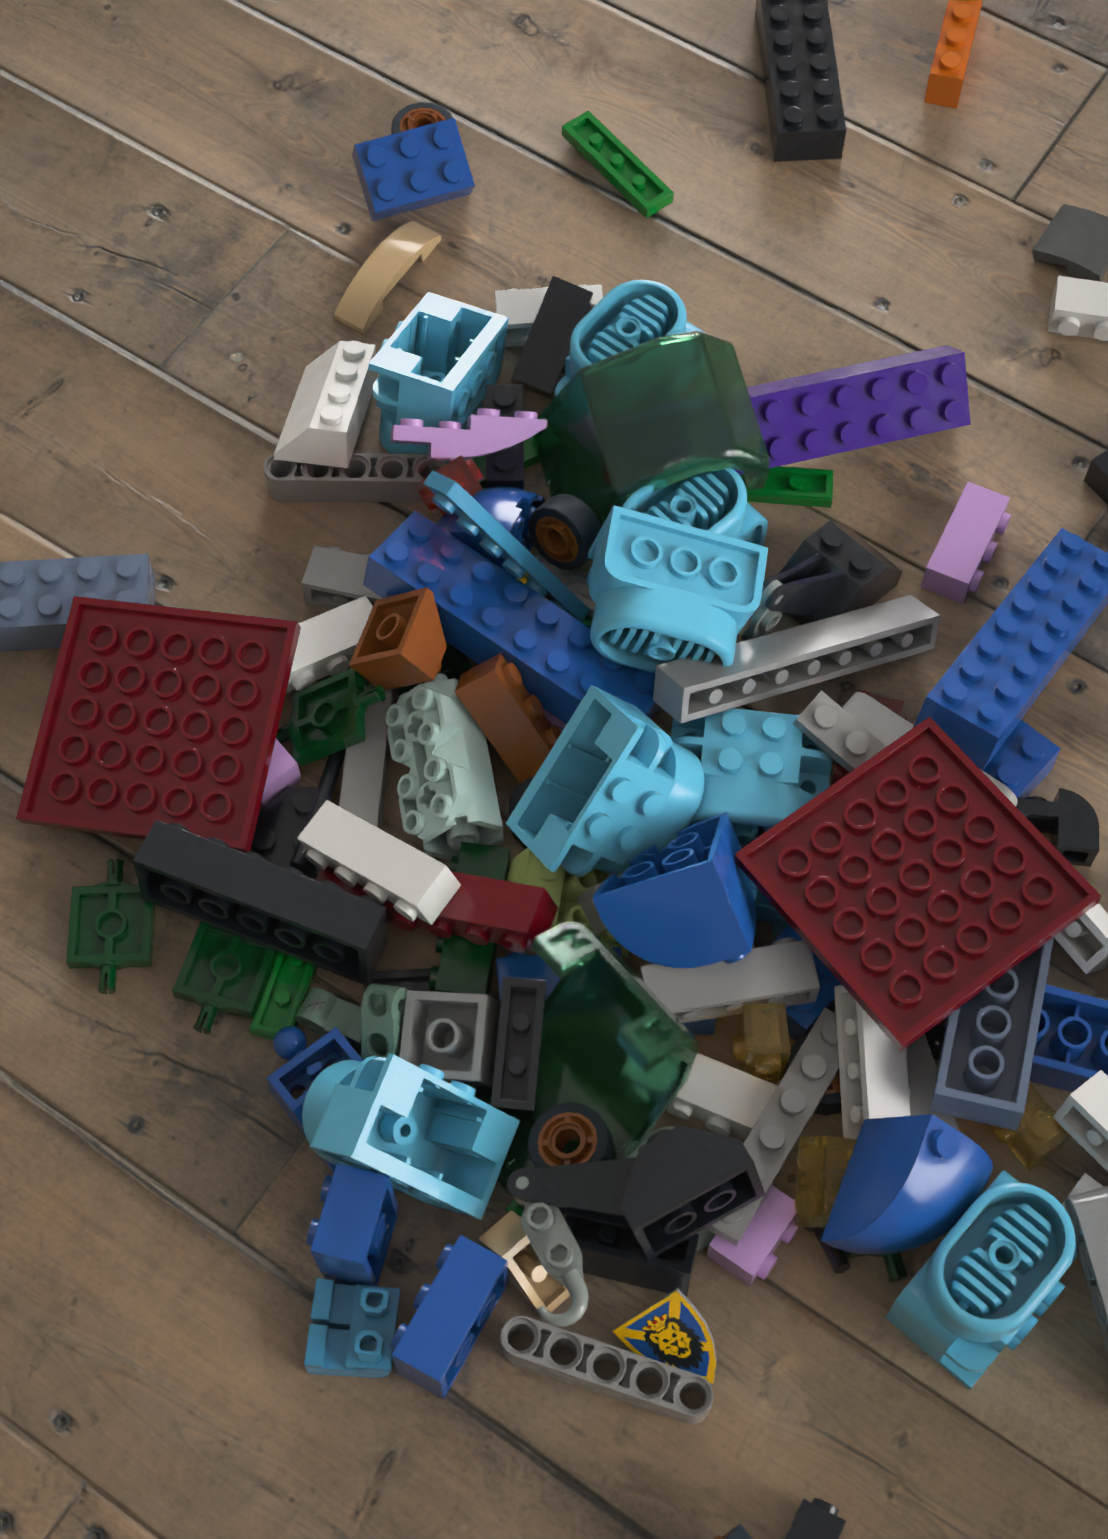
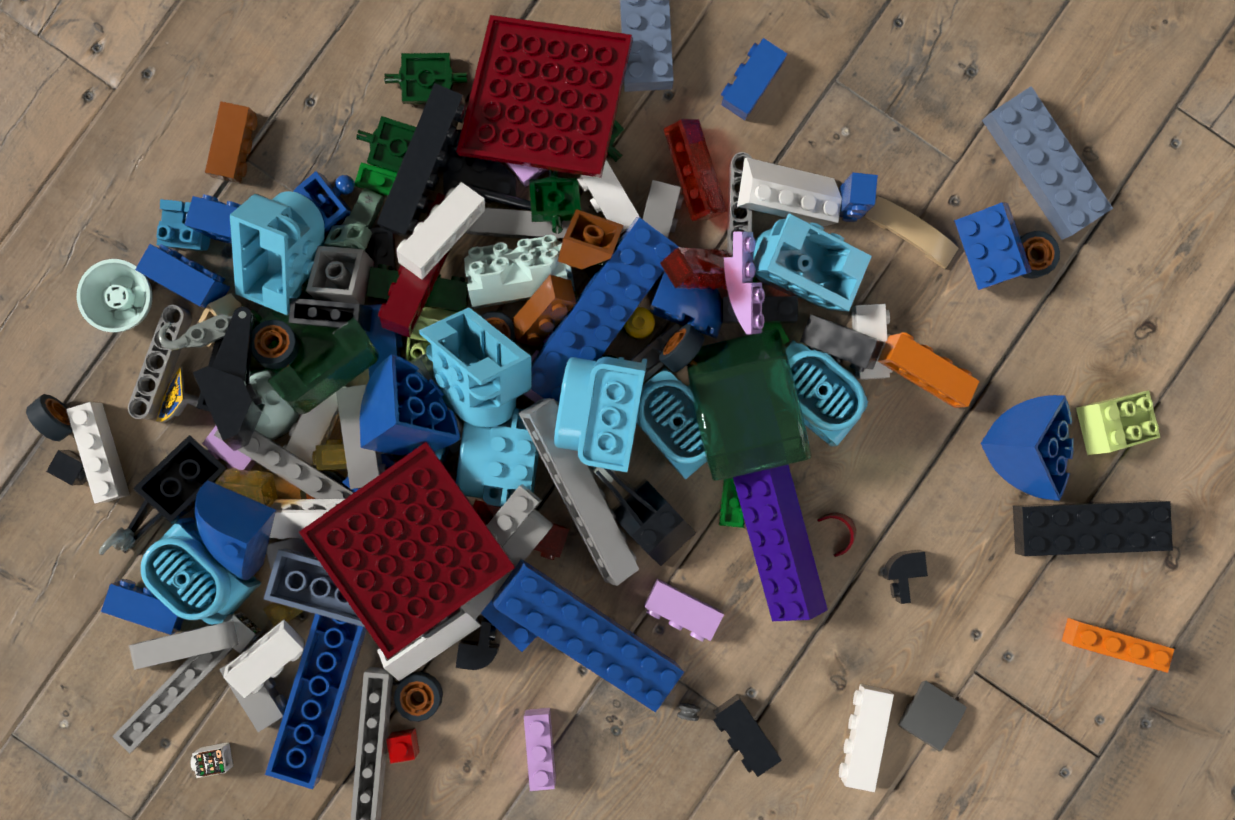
camera: 90 degrees right, 25 degrees up
(150, 462) = (753, 78): none -> blue brick
(203, 1248) = (231, 142): none -> dark orange brick
(287, 530) = (695, 169): none -> clear red brick
(296, 119) = (1047, 163): none -> sand blue brick
(338, 307) = (857, 196): none -> blue brick
(470, 1415) = (104, 289): none -> light aqua piece
(499, 542) = (641, 302): dark azure plate -> none
(591, 237) = (928, 370): none -> orange brick
(617, 164) = (1006, 392): green plate -> none
(655, 46) = (1118, 423): none -> yellowish green slope
(692, 127) = (1032, 446): none -> blue brick
(779, 1481) = (98, 452): none -> white brick
(832, 335) = (850, 524): none -> dark red helmet
(834, 1318) = (170, 490): none -> black slope
(878, 278) = (900, 568): none -> black brick
(1058, 1386) = (140, 607): none -> blue brick

